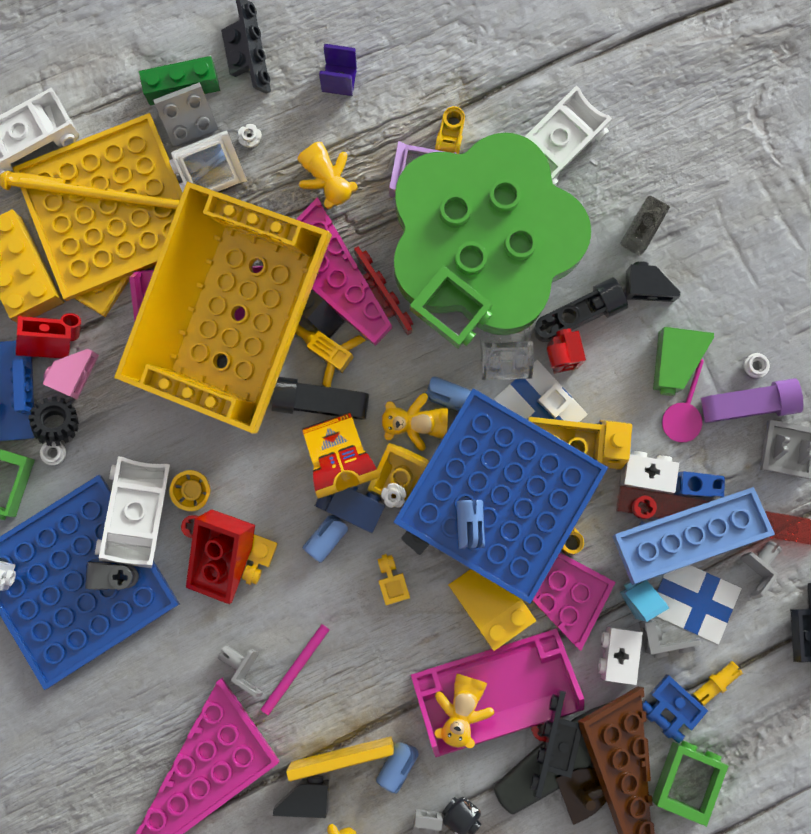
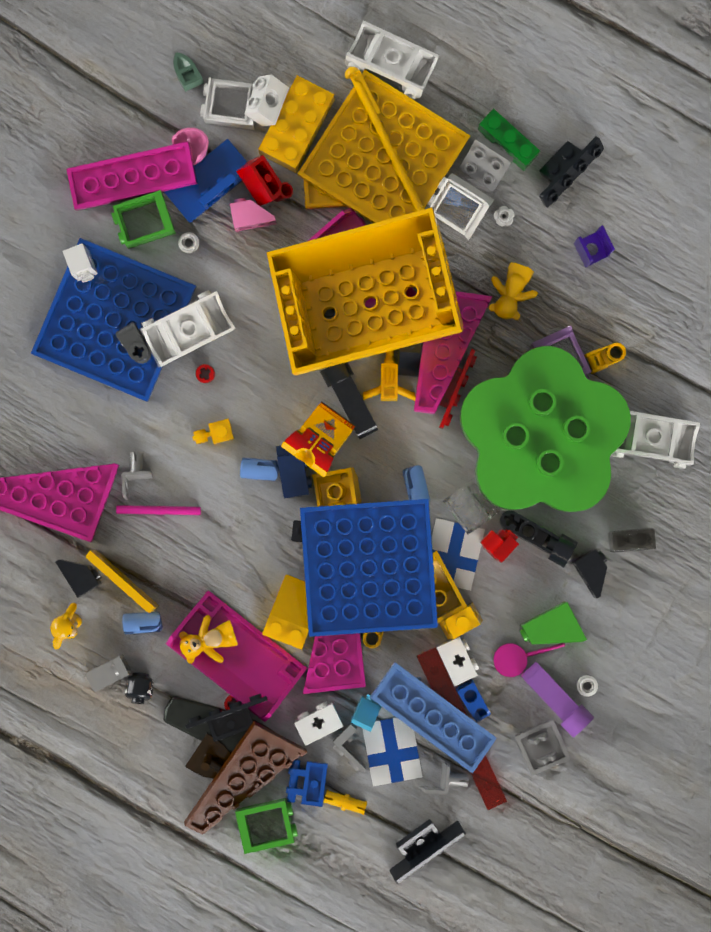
camera: 60 degrees right, 5 degrees up
(49, 409) = (218, 221): black tyre -> none
(190, 490) = (227, 355): yellow helmet -> none
(218, 554) = (198, 405): red slope -> none
(394, 586) = (258, 538): yellow plate -> none
(396, 489) = (325, 495): white plate -> none
(429, 292) = (460, 470): bright green window -> none
(430, 422) = (381, 475): yellow piece -> none
(470, 524) = (333, 560): medium blue arm -> none
(555, 400) = (463, 561): white plate -> none
(651, 504) = (425, 668): red bush -> none

